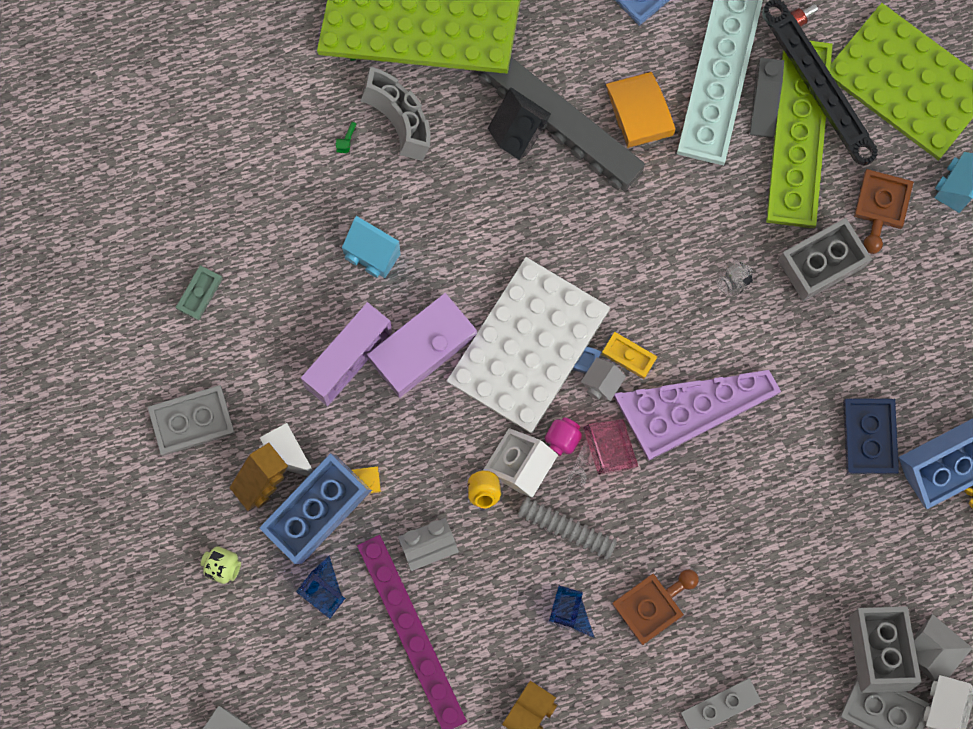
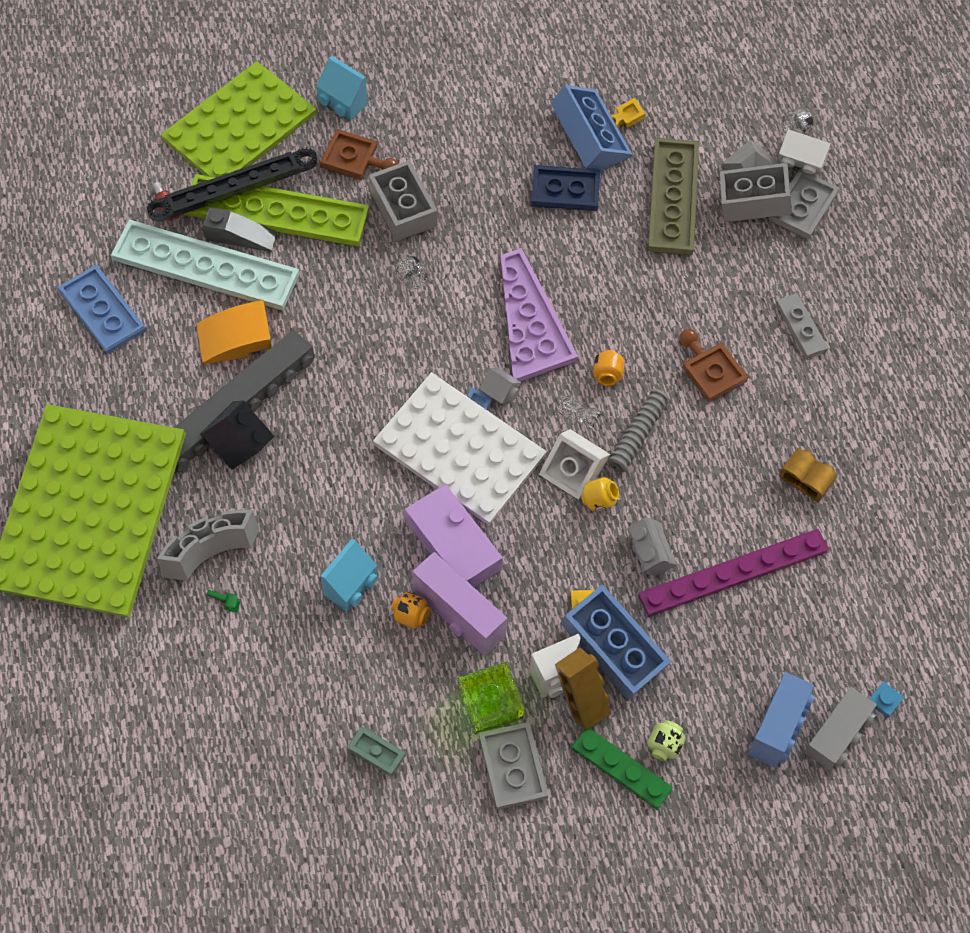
camera: 85 degrees left, 15 degrees down
(195, 525) = (622, 768): none -> green plate
(241, 678) = (782, 720): none -> medium blue brick
(253, 392) = (490, 698): none -> clear neon green brick
(322, 589) = (690, 650): clear blue slope -> none
(341, 310) = (410, 610): none -> light orange head
(563, 436) = (551, 423): dark pink head -> none
(570, 612) = (715, 437): clear blue slope -> none
(610, 446) = (565, 384): clear pink tile -> none
(629, 355) = (476, 365): yellow plate -> none
(638, 492) = (608, 367): none -> light orange head
(877, 558) = (673, 196): none -> olive plate

